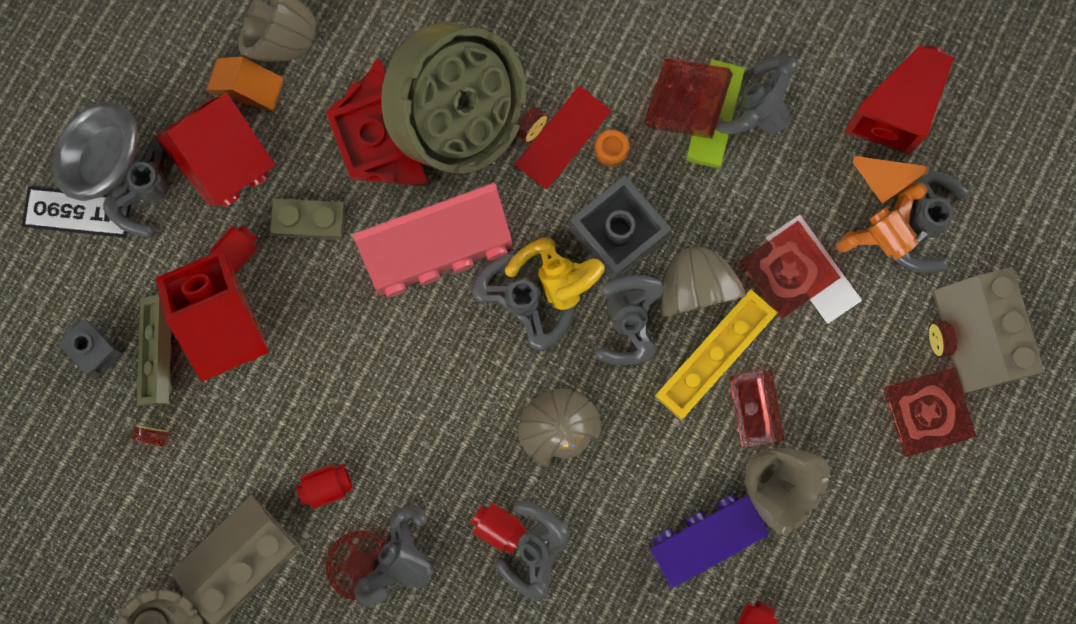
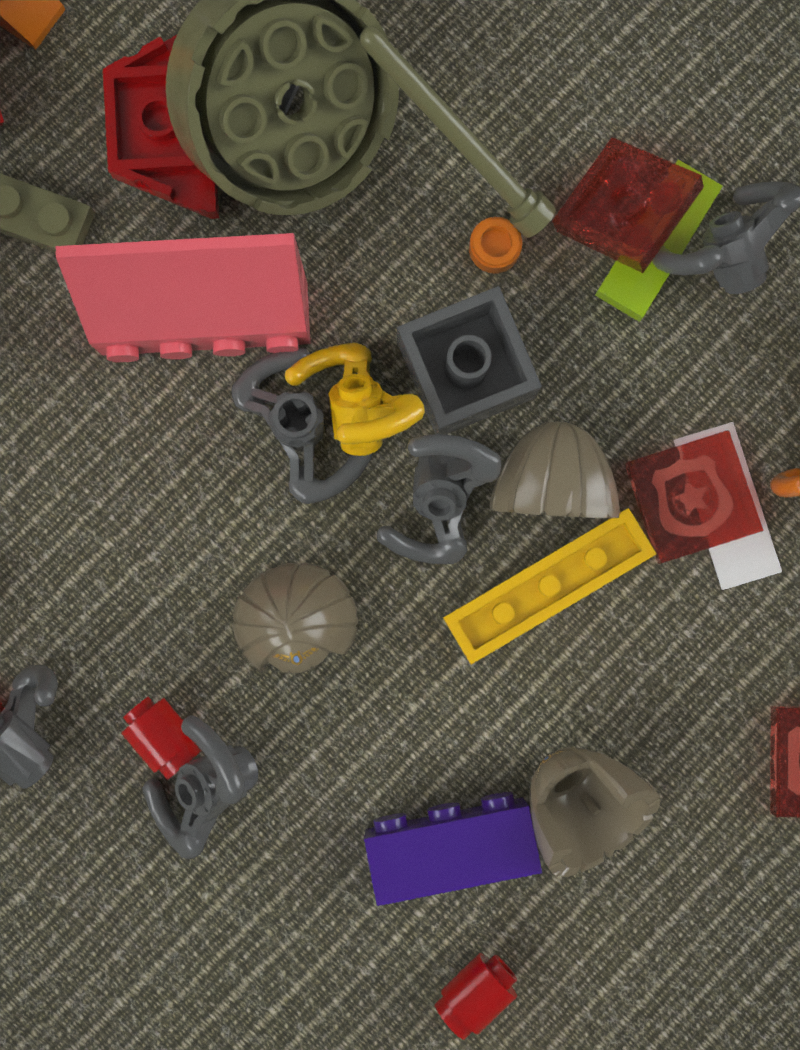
camera: 15 degrees right, 5 degrees up
(532, 124) = (390, 175): clear red tile -> none
(562, 137) = (424, 214): red sticker -> none
(627, 120) = (528, 209): none -> olive piece
(756, 408) = (582, 680): clear red slope -> none

